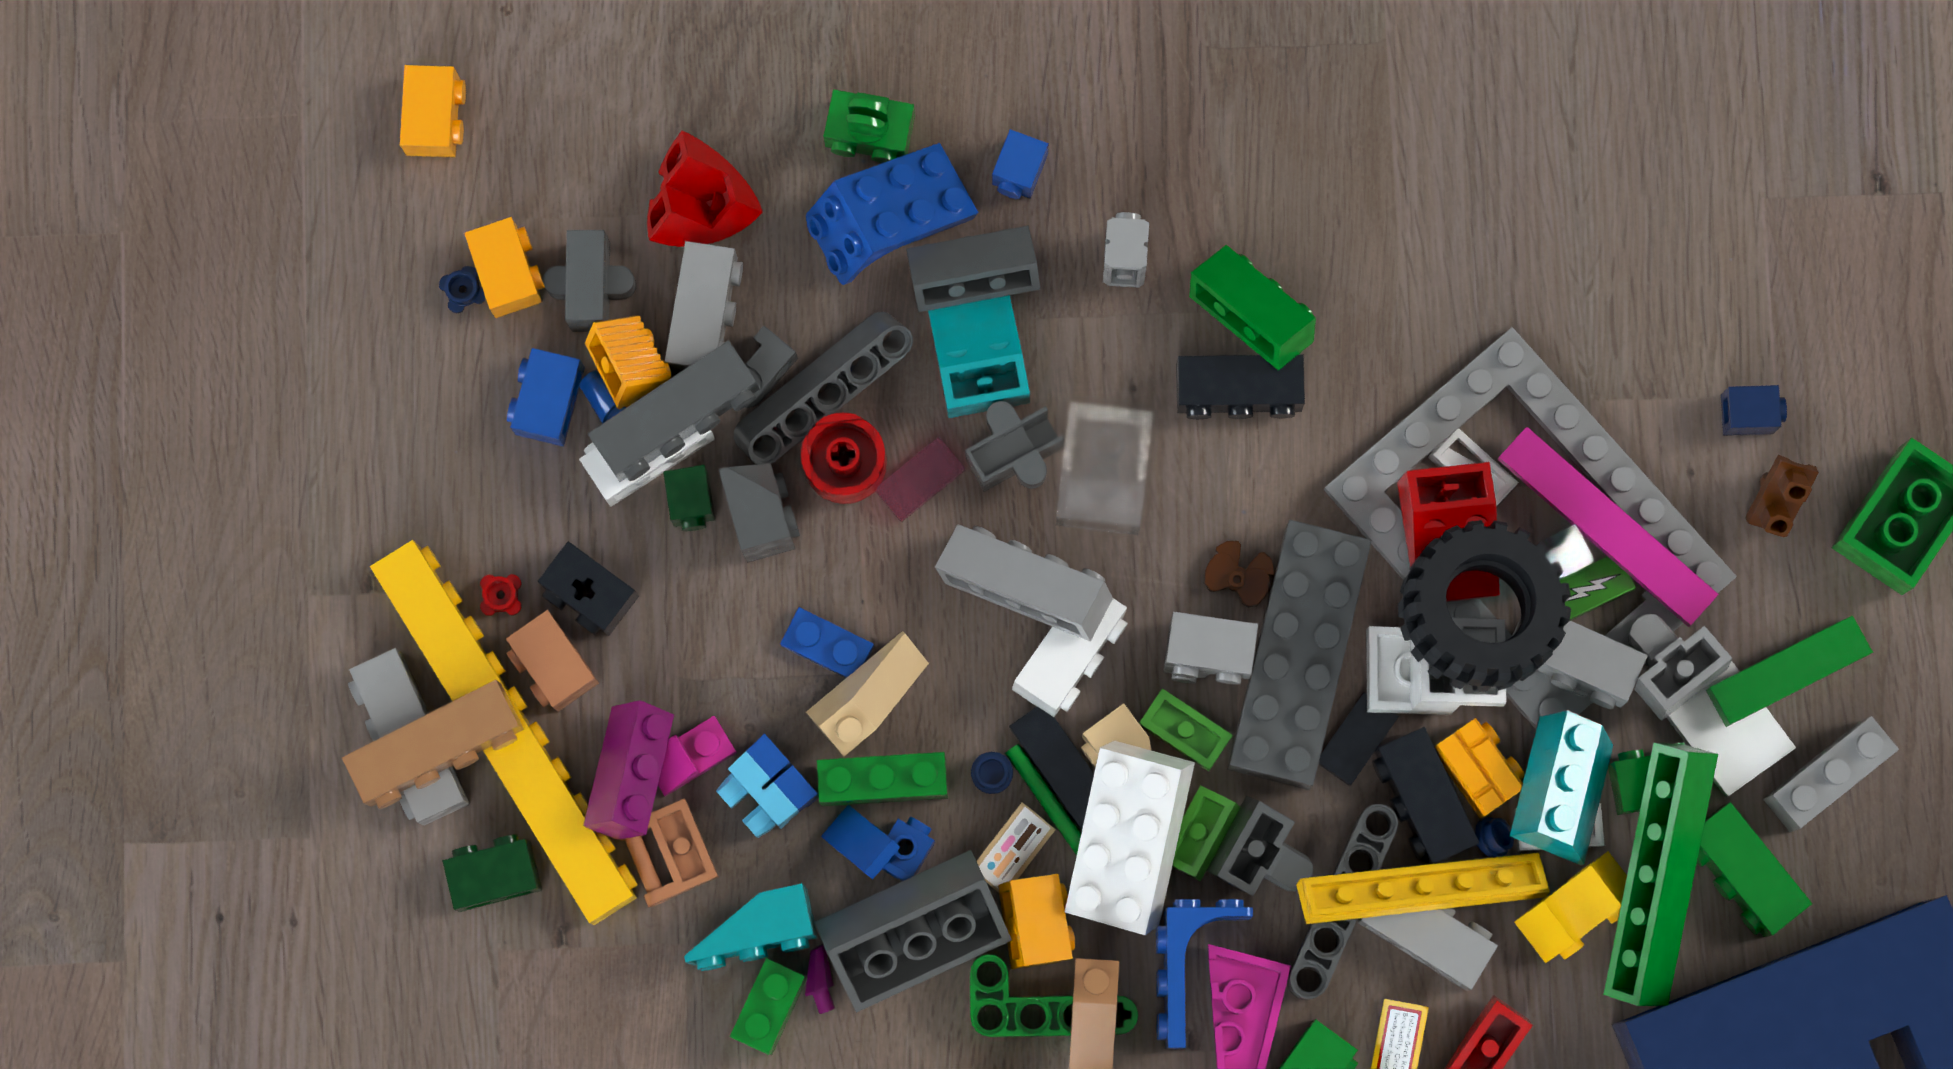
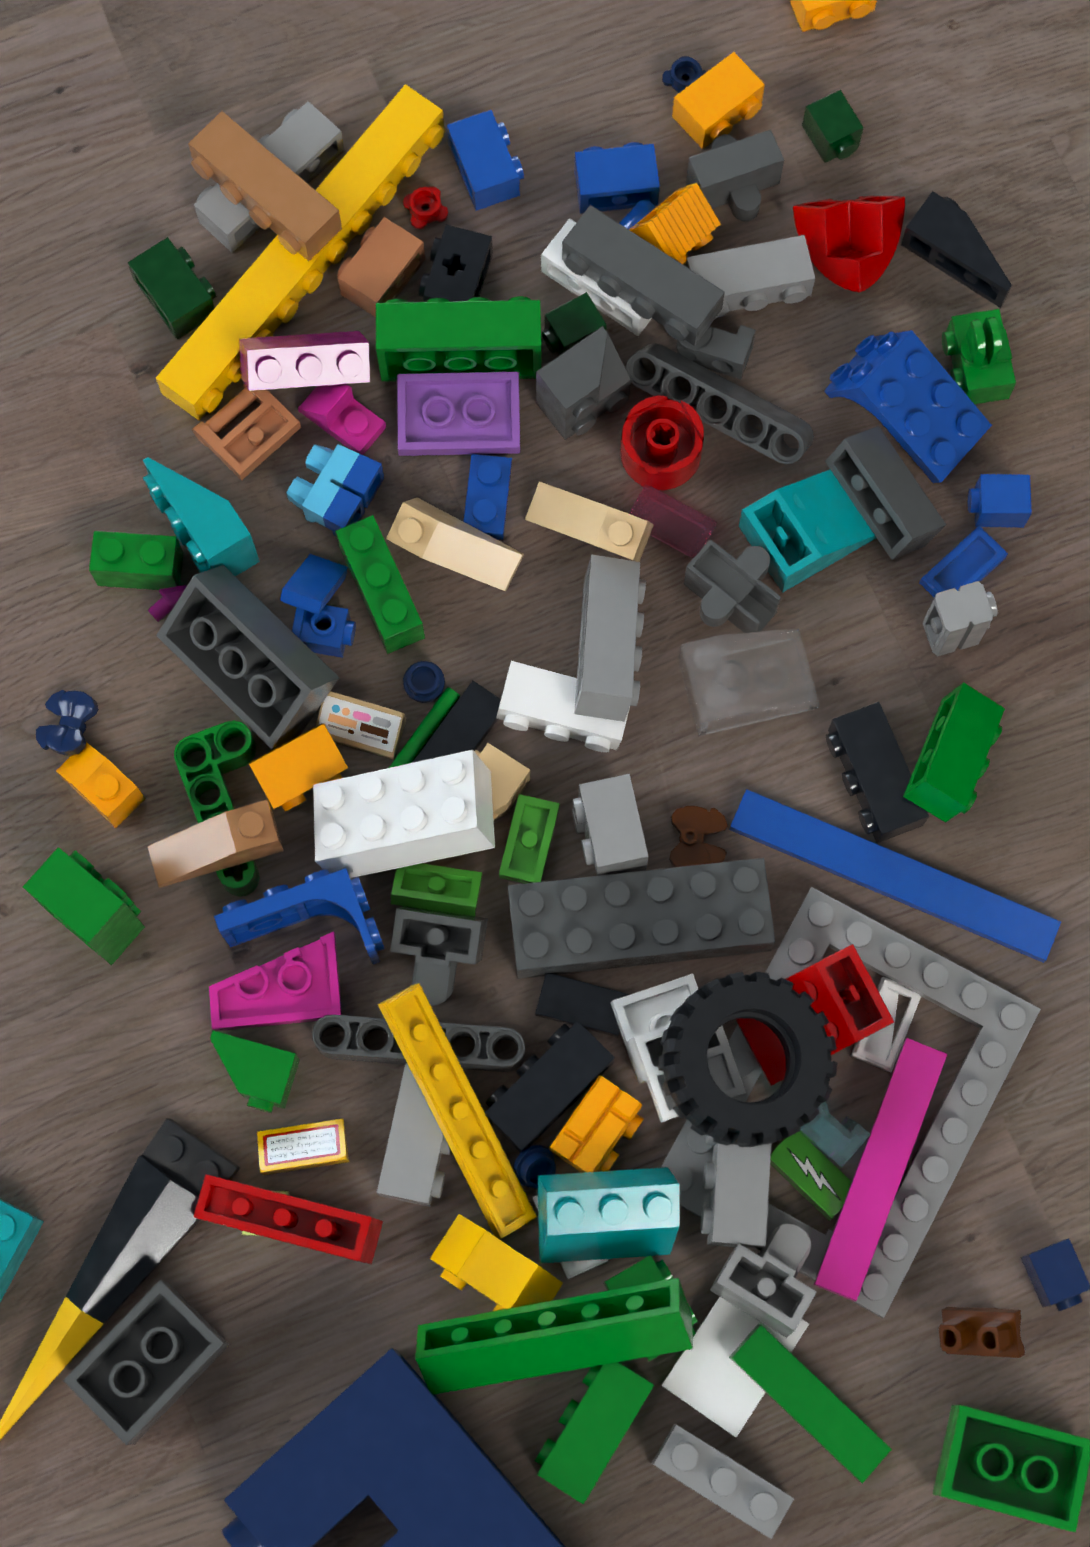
camera: 65 degrees right, 5 degrees down
(475, 518) = (484, 159): none -> blue brick
(577, 168) = (833, 127): none -> dark green brick
(665, 611) = (458, 336): none -> green brick
(733, 641) = (458, 413): none -> medium lavender plate
(744, 103) = (951, 243): none -> black slope
(895, 557) = (589, 521): none -> tan slope
(1069, 226) = (965, 564): none -> blue tile
(1338, 408) = (895, 876): none -> blue tile

